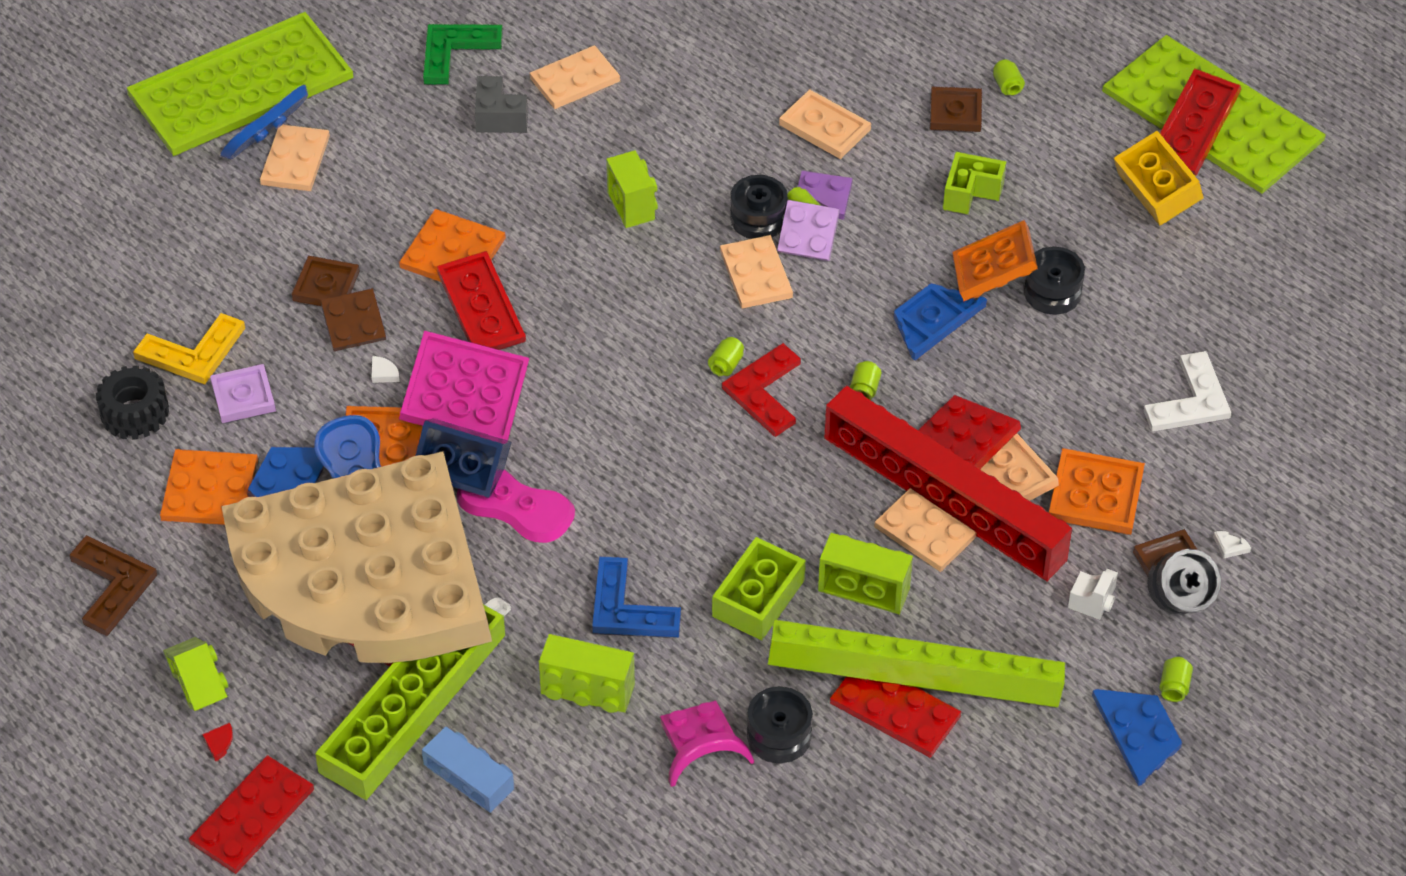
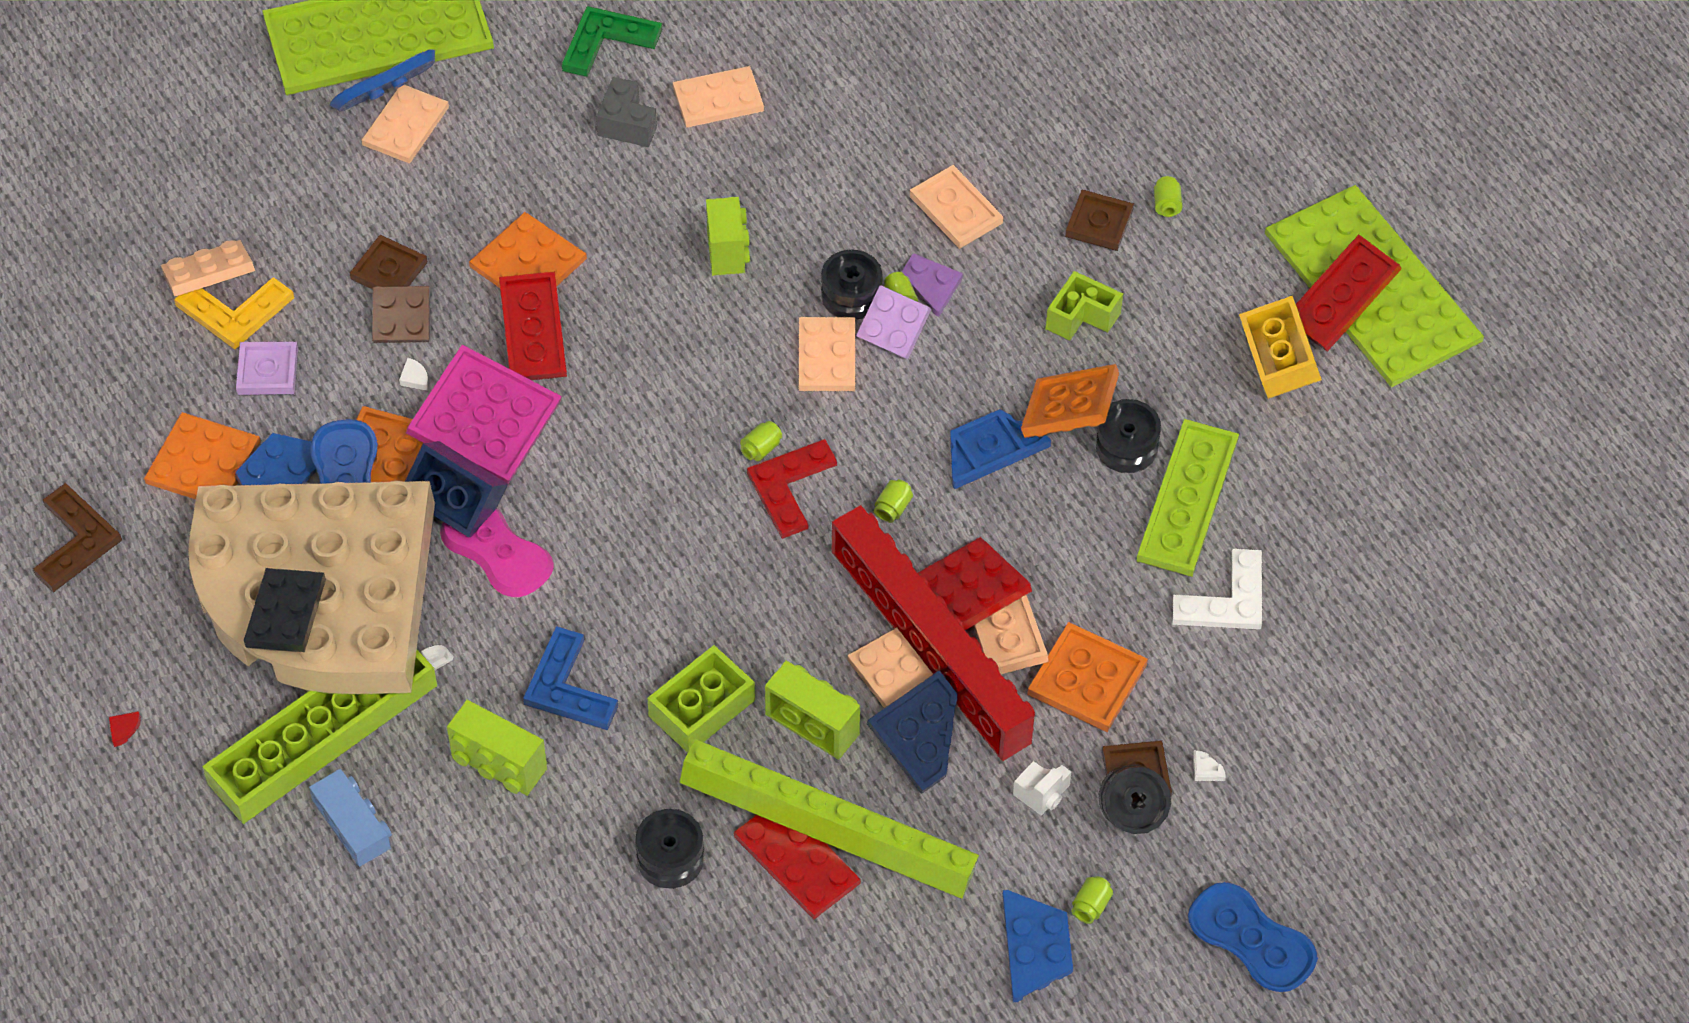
camera: 15 degrees right, 5 degrees up
(137, 417) = (160, 369): black tyre -> none
(155, 317) = (207, 267): none -> light nougat plate
(195, 669) = (119, 653): lime brick -> none
(251, 814) = (129, 810): red plate -> none
(354, 590) = (285, 610): none -> black plate
(697, 733) = (589, 836): dark pink piece -> none
(967, 570) = (919, 730): none -> dark blue plate
(1124, 322) = (1187, 497): none -> lime plate
(1353, 686) = (1271, 952): none -> blue plate

